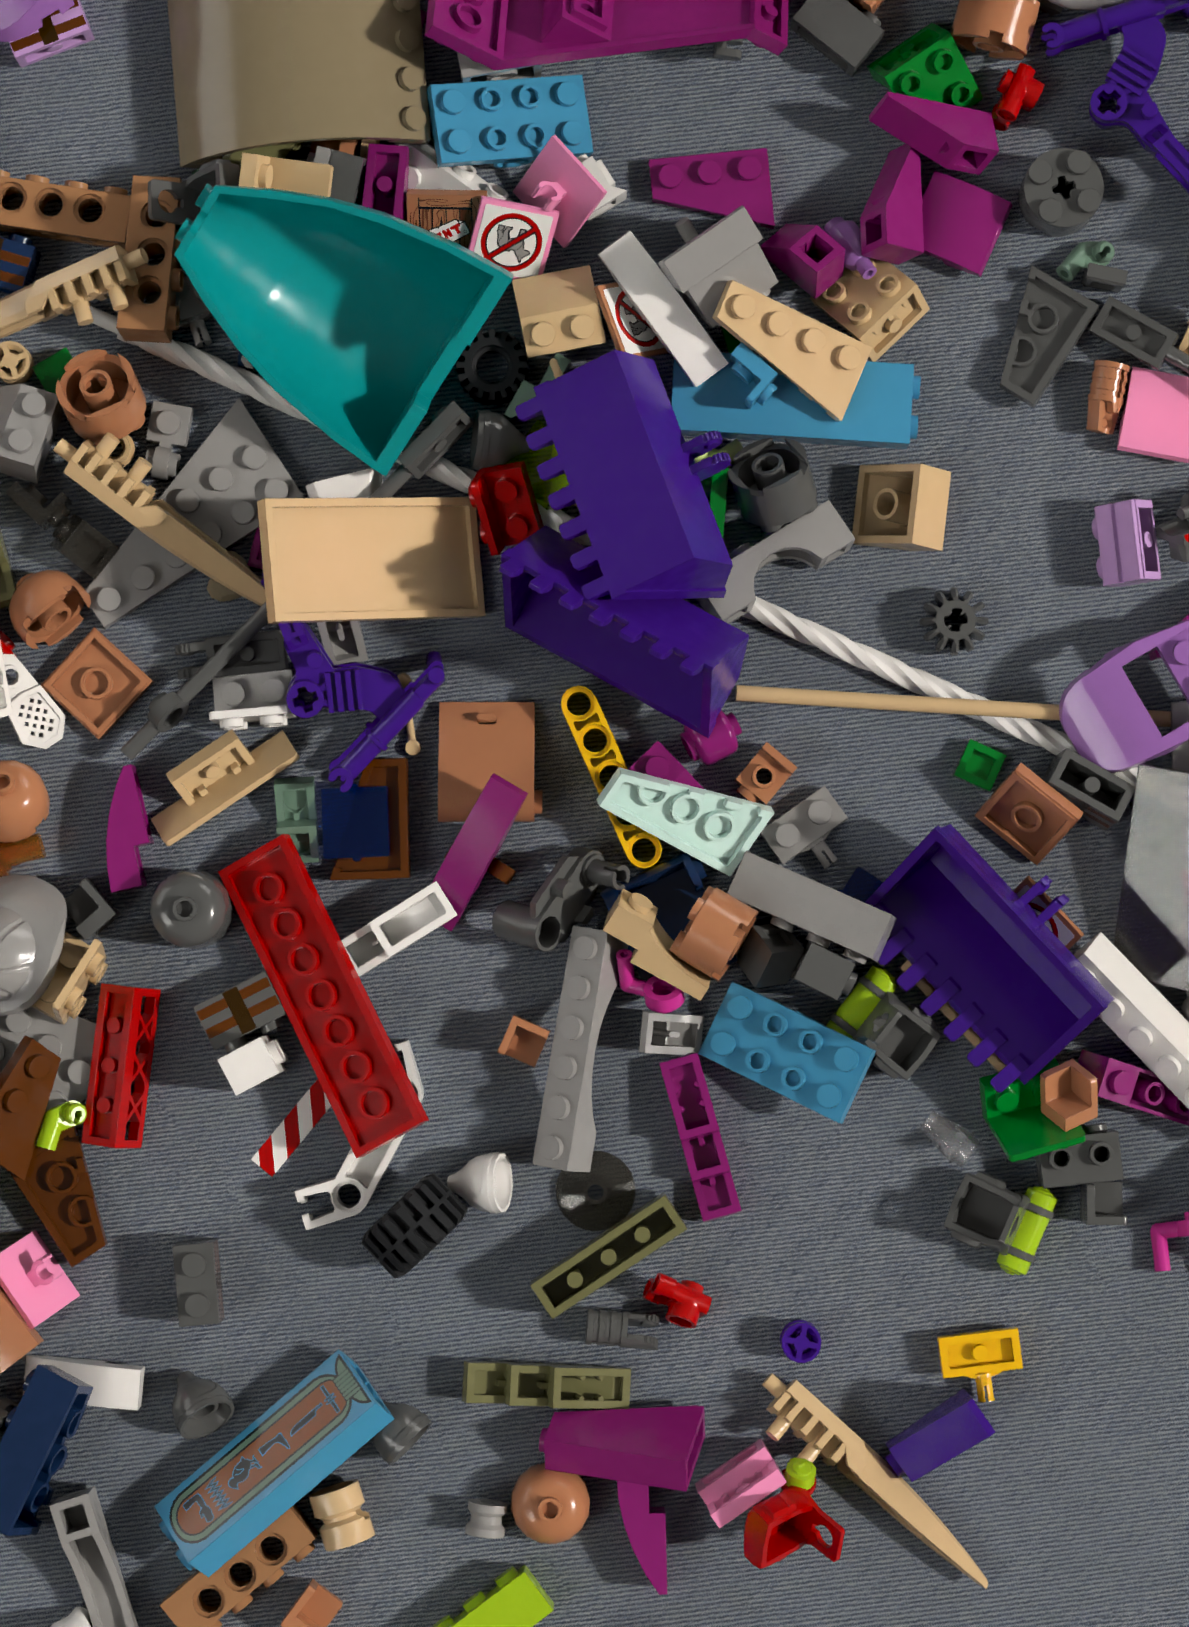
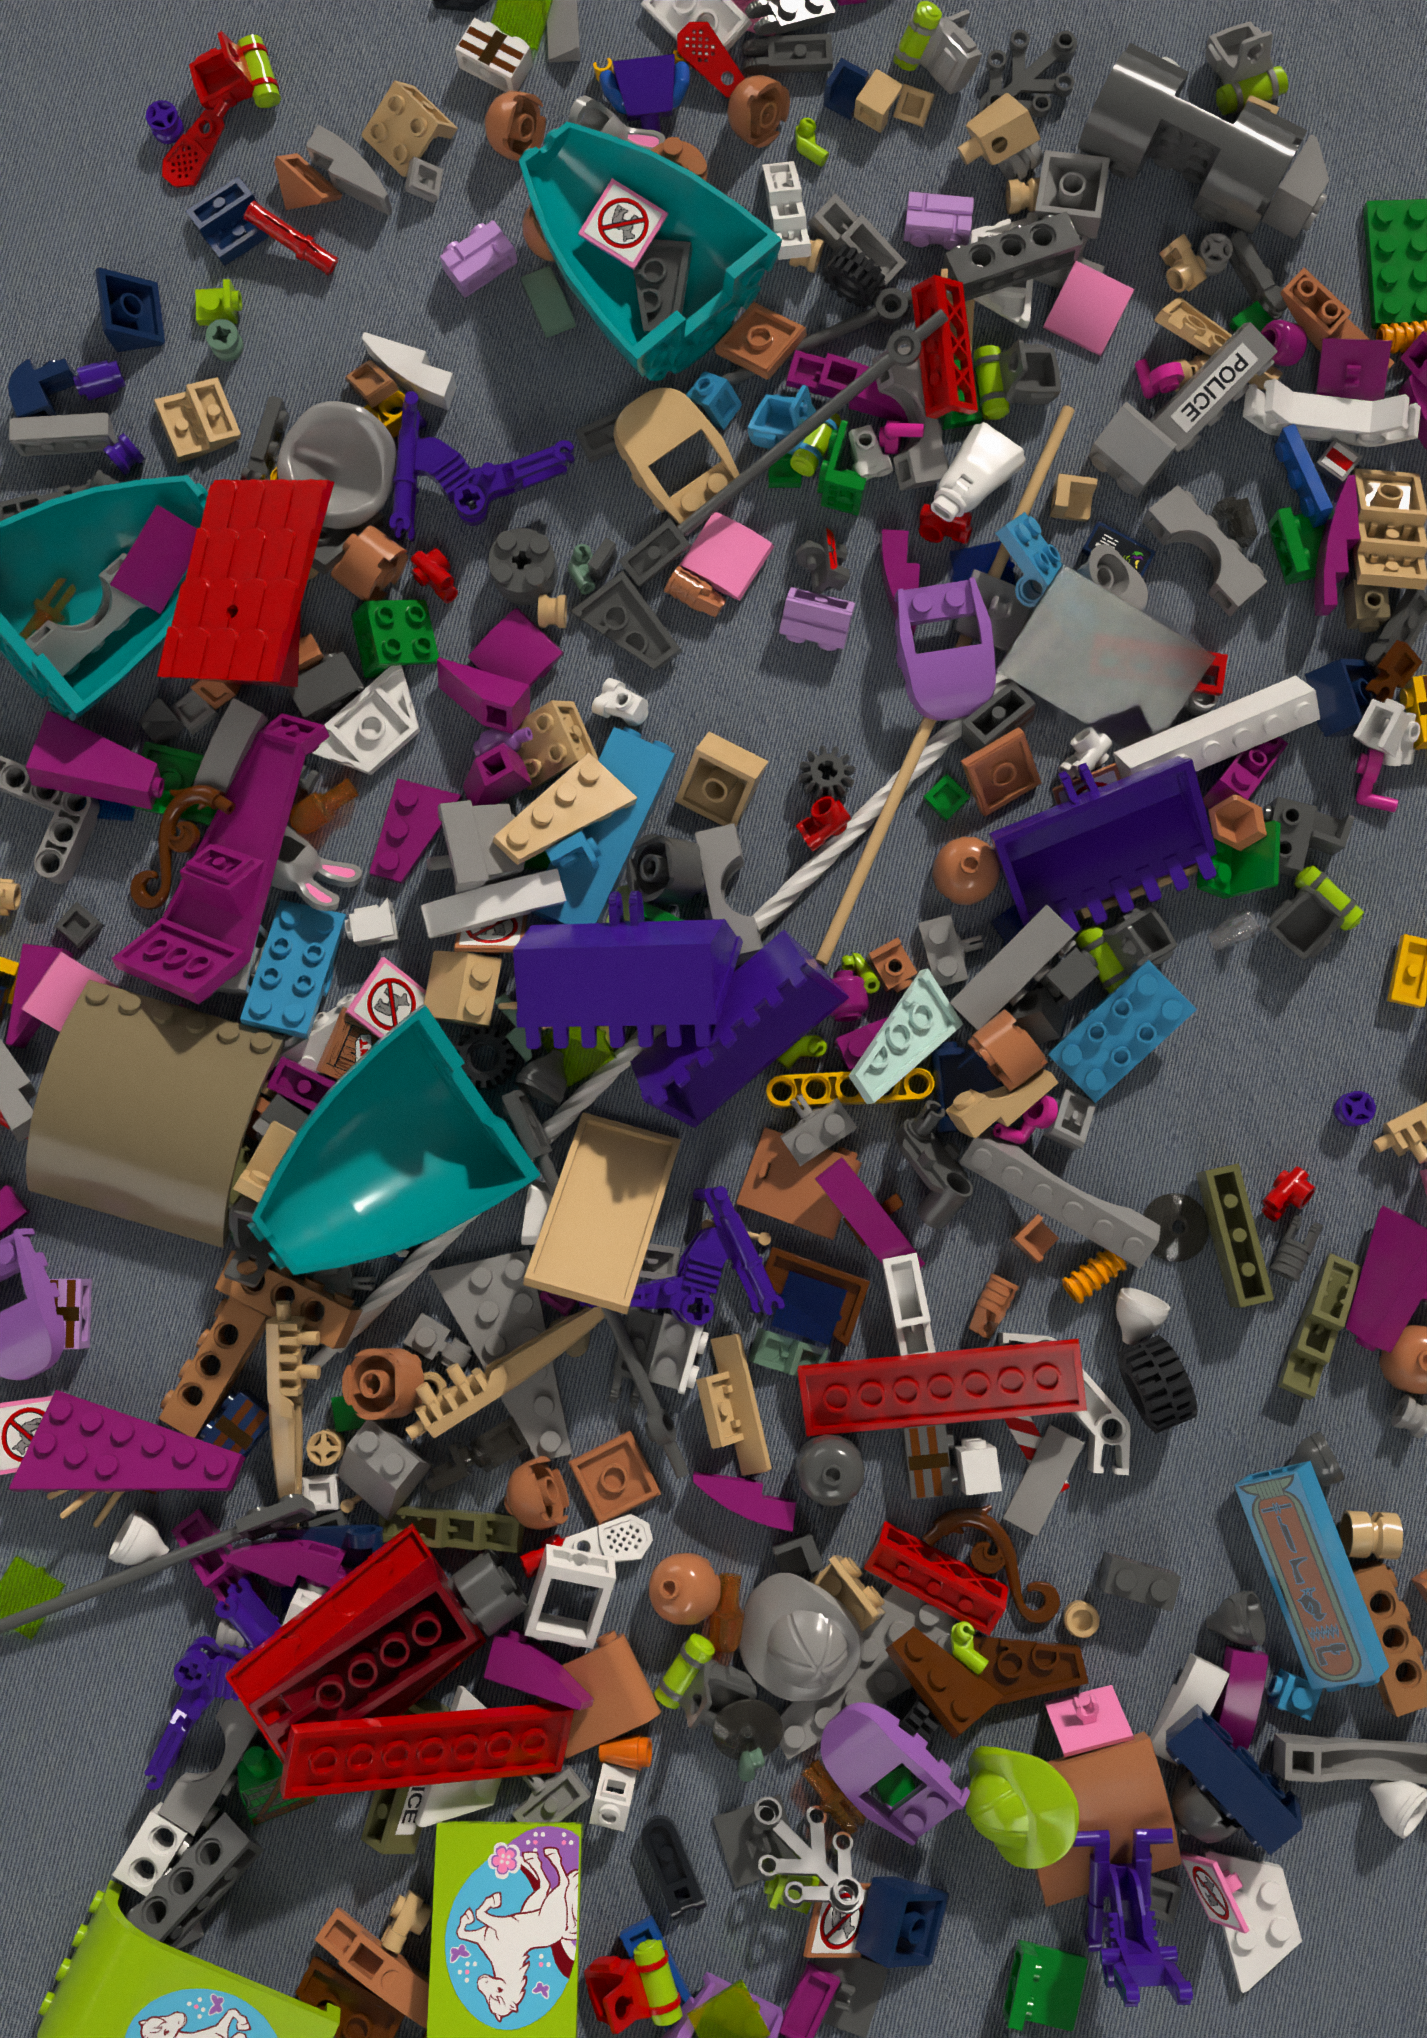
camera: 65 degrees left, 5 degrees down
(121, 1433) = (1242, 1694): none -> magenta slope
(136, 1237) = (1081, 1619): none -> tan tile
(142, 1491) = (1293, 1694): none -> dark azure bracket
(201, 1088) = (953, 1522): none -> reddish brown plant
(267, 1143) = (1043, 1480): none -> light grey slope
(433, 1021) = (992, 1305): none -> nougat hinge
(504, 505) = (600, 1088): red bracket -> none
(507, 1118) = (1093, 1275): none -> light orange piece
(550, 757) = (816, 1129): none -> light grey plate
(561, 184) = (360, 947): bright pink piece -> none
(628, 81) = (300, 865): none -> light grey piece
(640, 714) = (806, 1047): none -> lime arm
(700, 76) = (320, 808): none -> clear orange arm
(700, 1137) = (1163, 1126): magenta slope -> none
(753, 736) = (857, 964): none -> lime arm
(815, 96) = (372, 724): none -> white wing
(899, 639) = (827, 819): none -> red plate
(902, 815) = (966, 870): none -> nougat cylinder
(943, 132) = (439, 637): magenta slope -> none
(946, 361) = (620, 702): none -> white plate
(1022, 244) = (552, 611): none -> tan wheel
(1092, 905) = (1089, 748): none -> white plate

